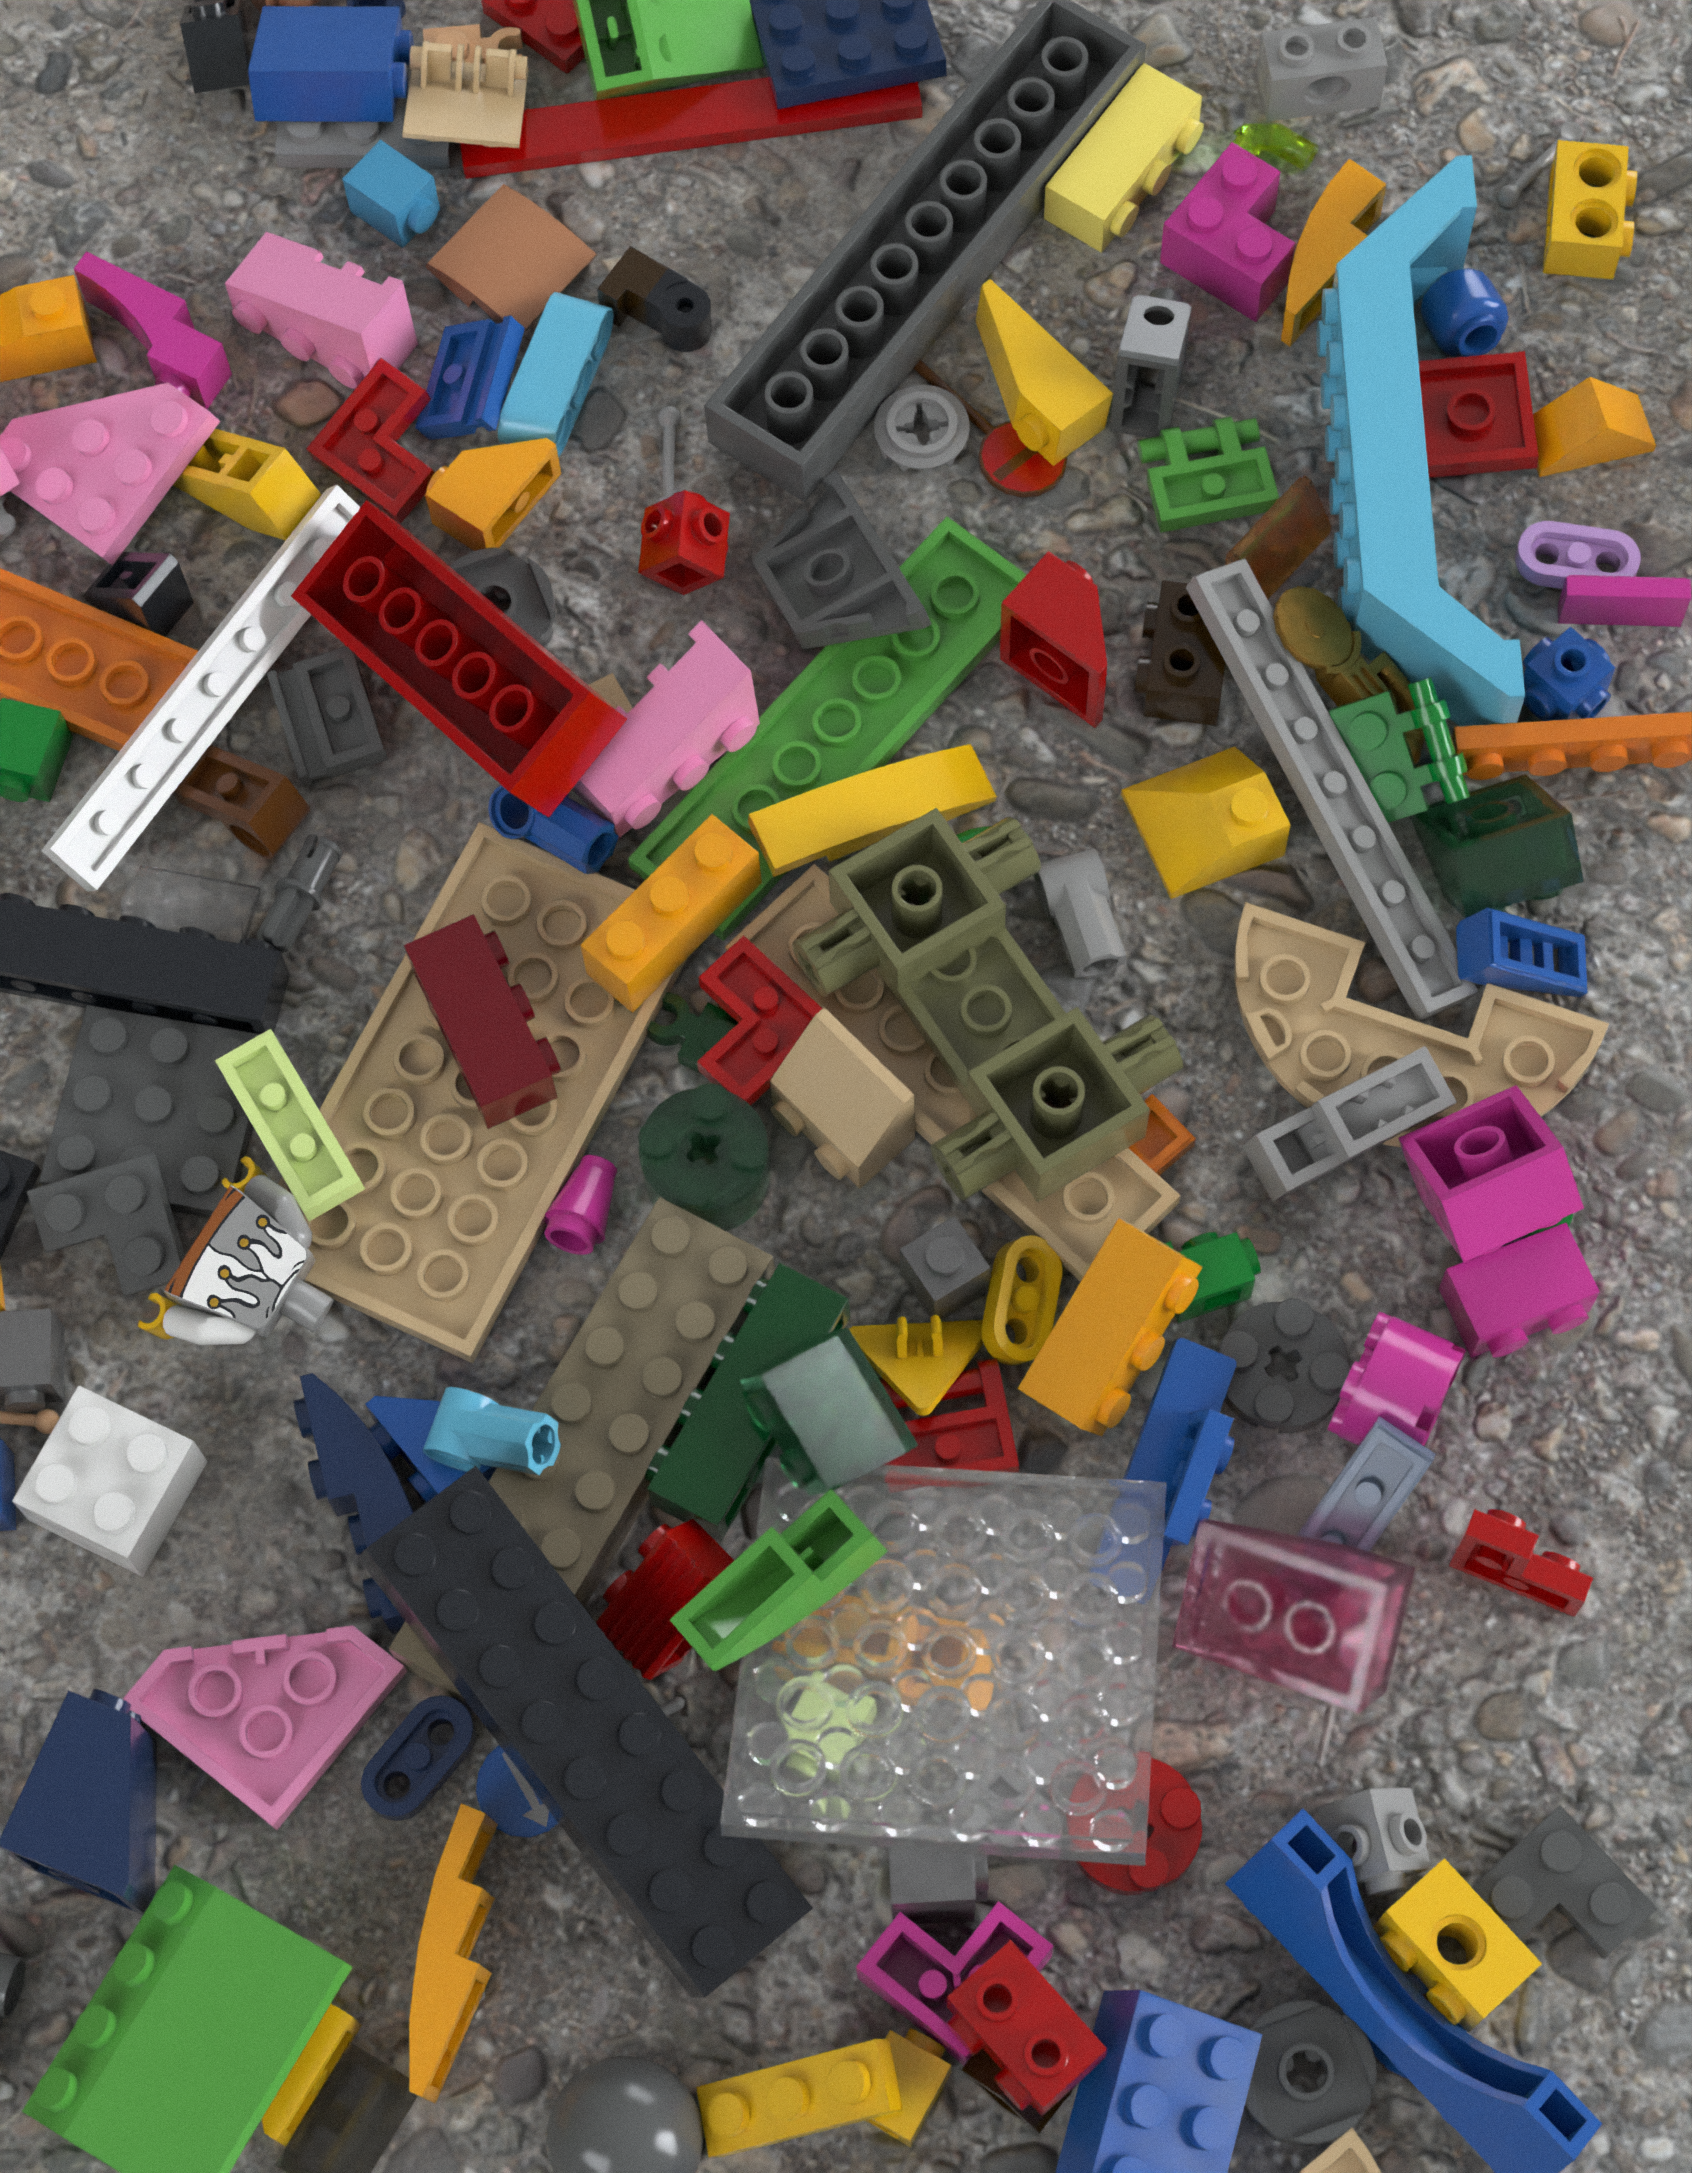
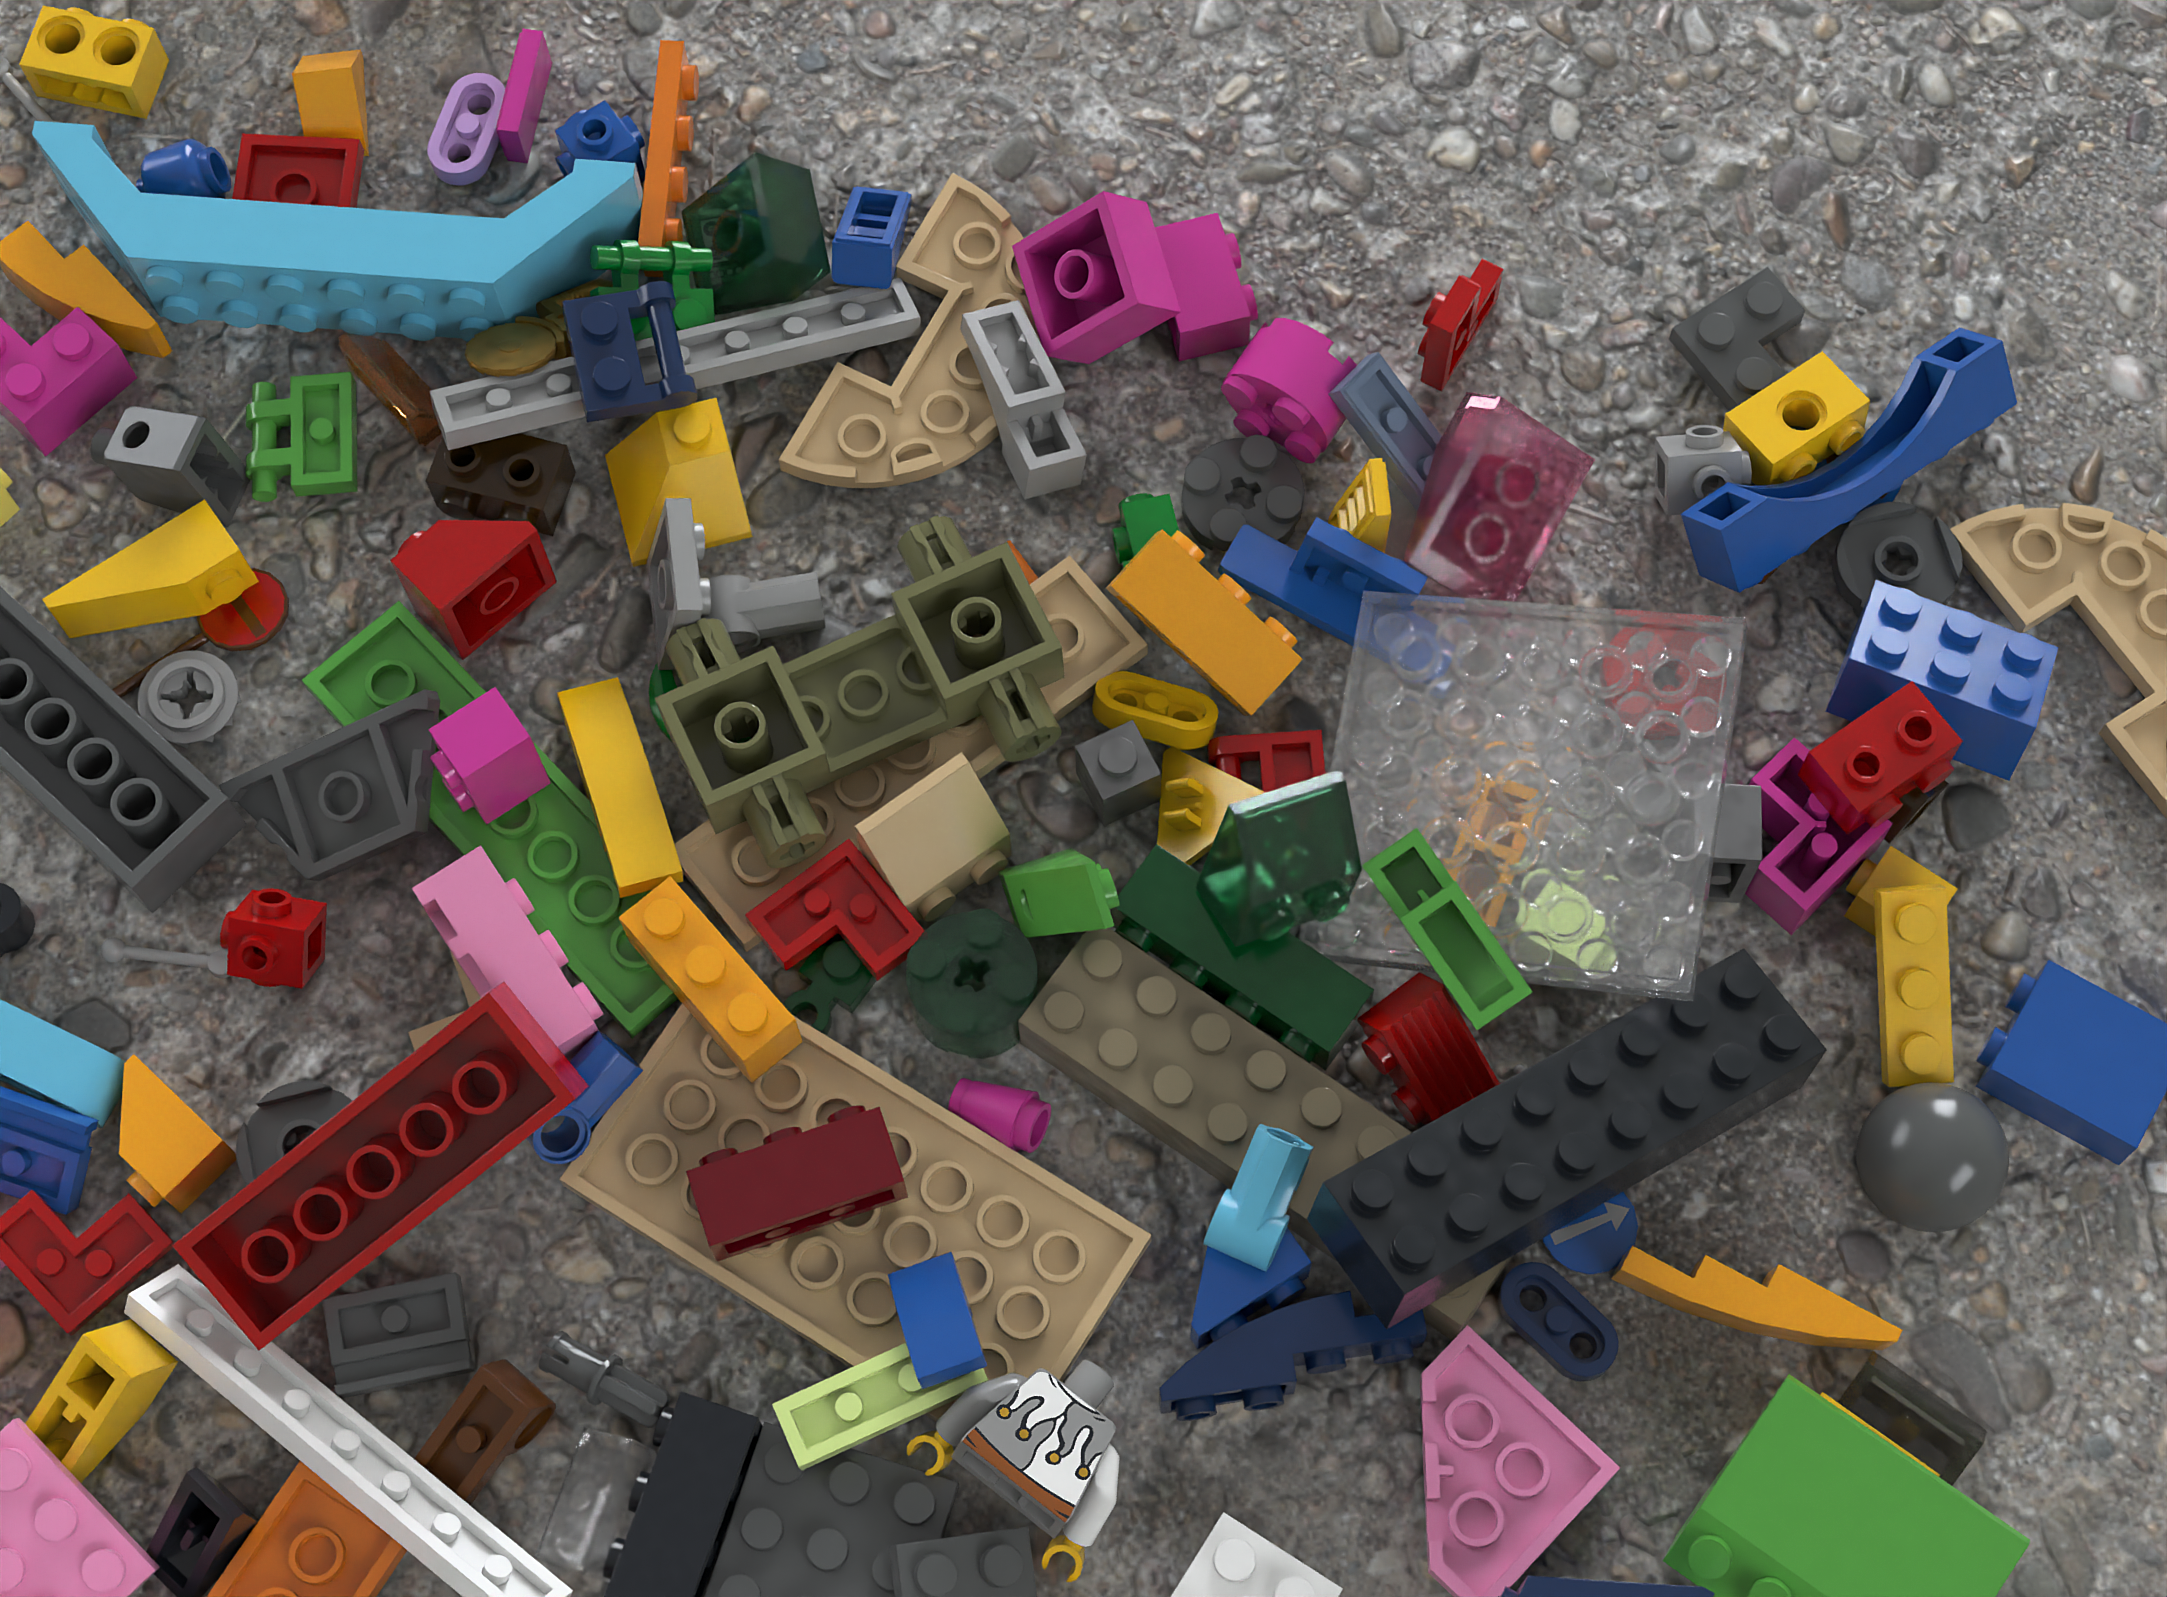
camera: 85 degrees left, 0 degrees up
(357, 1157) = (936, 1320): none -> blue slope
(797, 1221) = (1059, 894): none -> bright green slope
(865, 676) = (487, 757): none -> dark pink brick
(1101, 817) = (674, 581): none -> light grey plate
(1260, 1487) = (1366, 506): none -> yellow slope
(1309, 710) = (608, 355): none -> dark blue plate

